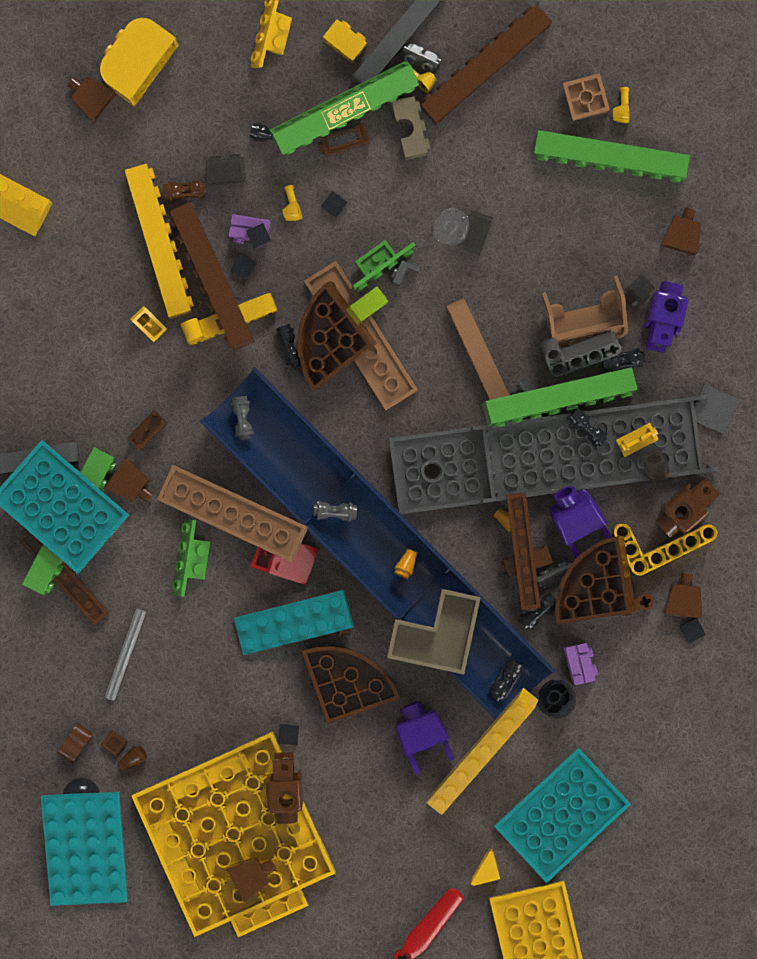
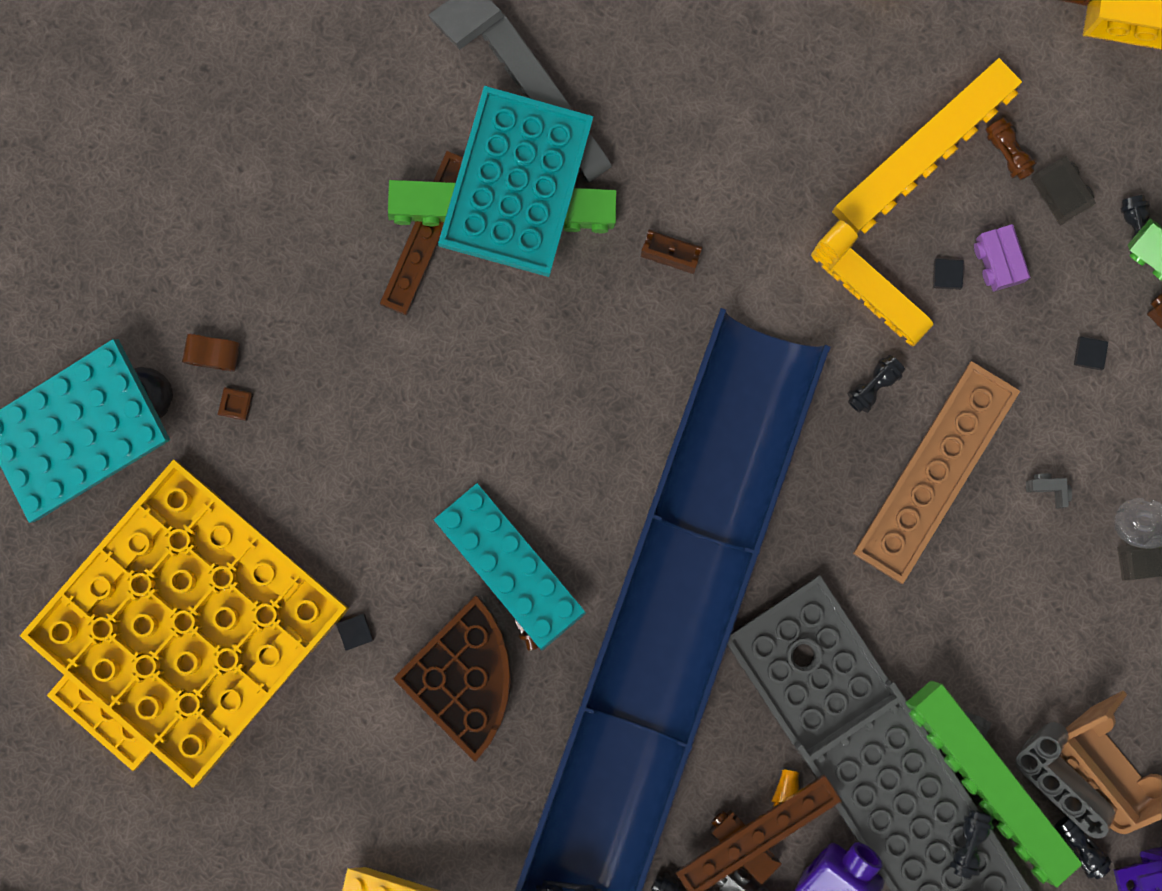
camera: 65 degrees right, 5 degrees down
(125, 654) = (360, 363): light grey axle -> none
(129, 482) = (591, 260): reddish brown torso -> none
(133, 757) = (226, 438): reddish brown cone -> none
(148, 324) = (812, 184): yellow slope -> none
(191, 559) = (530, 389): bright green bracket -> none
(212, 277) = (917, 238): reddish brown brick -> none
(232, 513) = (617, 415): medium nougat plate -> none
(240, 408) = (762, 357): dark grey piece -> none
(250, 876) = (135, 672): reddish brown torso -> none
(258, 235) = (1003, 271): black tile -> none
(284, 781) = (285, 658): reddish brown piece -> none
(292, 211) = (1055, 302): yellow bar -> none
(295, 571) = (590, 511): red slope -> none
(330, 337) = (916, 430): reddish brown brick -> none
(344, 511) = (692, 561): dark grey piece -> none
(369, 304) = (982, 461): lime tile -> none
(376, 261) = (1048, 446): bright green bracket -> none
(406, 564) = (660, 682): light orange cone -> none
(420, 732) = (442, 813): dark purple piece -> none
(444, 644) = (587, 792): dark tan piece -> none
(477, 349) = (998, 636): medium nougat beam -> none

